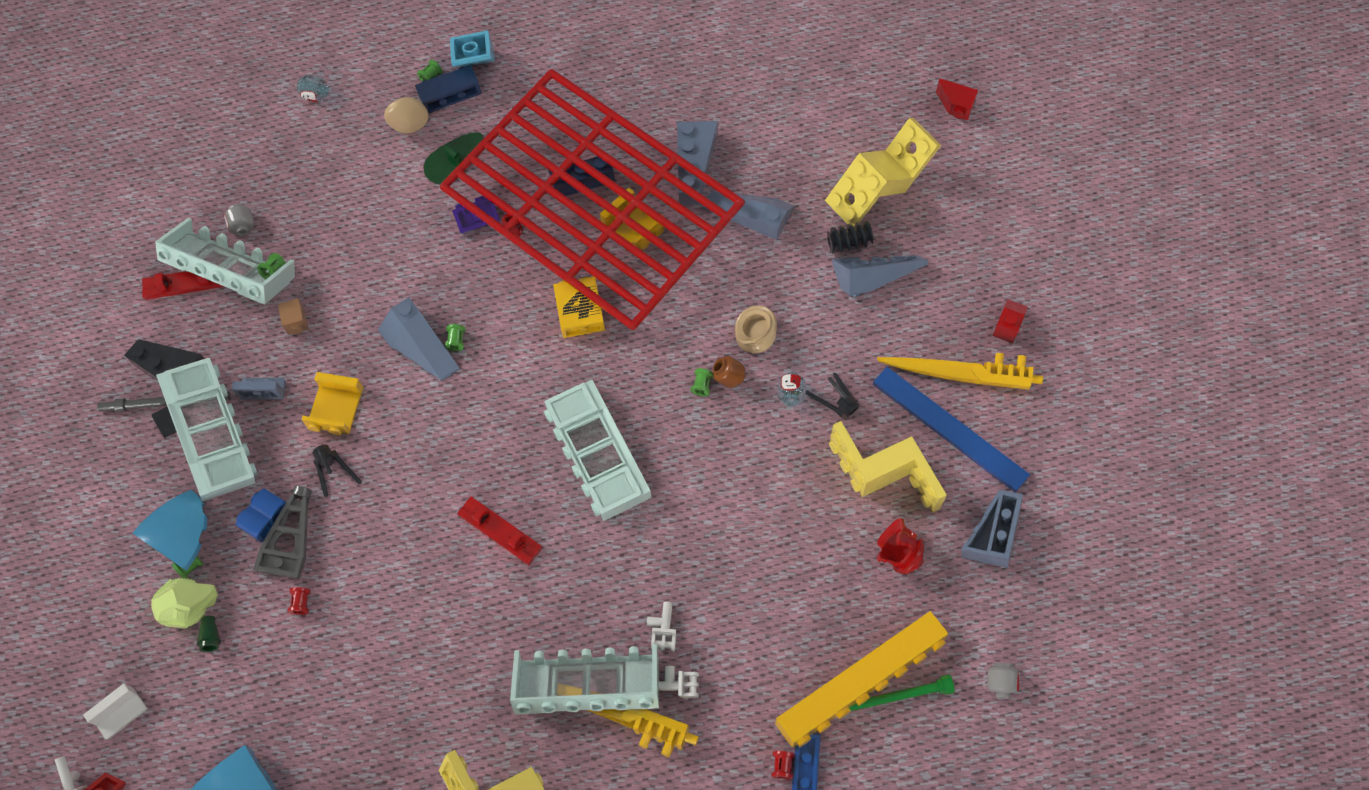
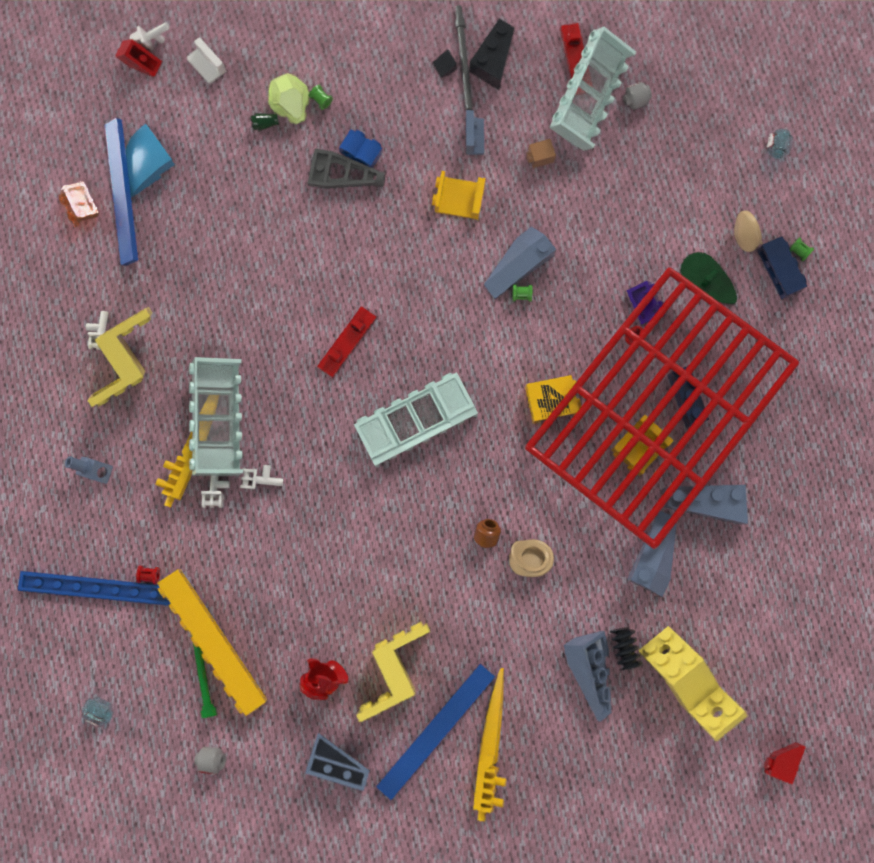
camera: 85 degrees right, 15 degrees up
(176, 528) = (347, 83): dark azure brick -> none
(207, 429) = (432, 94): light aqua window -> none
(270, 265) = (581, 124): bright green bush -> none
(299, 599) = (288, 187): red bush -> none
(324, 459) = (411, 193): black plant -> none
(471, 49) = (823, 286): medium azure slope -> none
(702, 382) = (479, 510): bright green bush -> none
(791, 389) = (471, 589): clear light blue head -> none
(846, 403) = (458, 638): black plant -> none
(1010, 321) = (542, 796): red slope -> none

